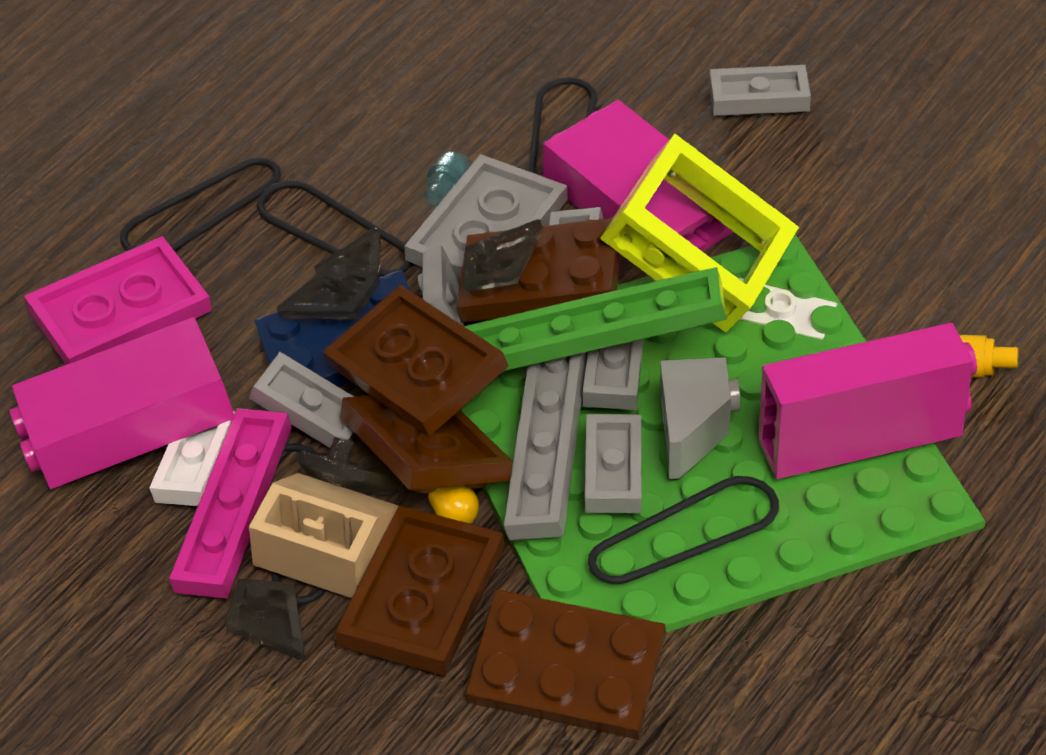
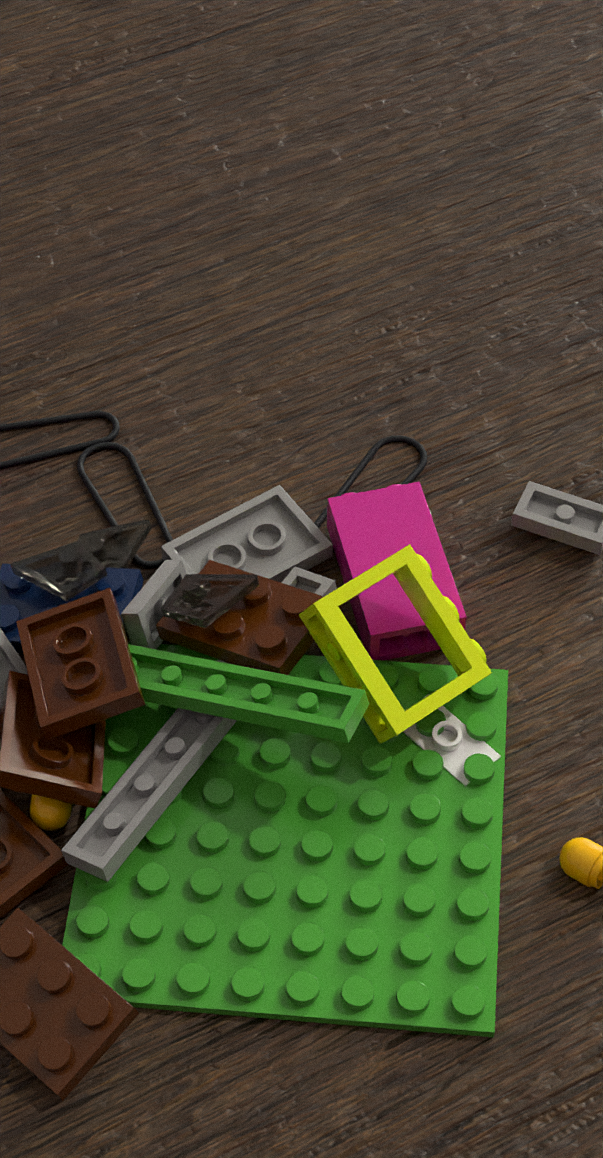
camera: 25 degrees right, 5 degrees up
(445, 174) = (242, 490): clear light blue cylinder -> none
(613, 376) = (246, 749): light grey plate -> none
(613, 463) = (193, 831): light grey plate -> none
(695, 409) = (291, 812): light grey slope -> none
(774, 509) = (200, 945): black piece -> none
(865, 400) = (436, 872): dark pink brick -> none

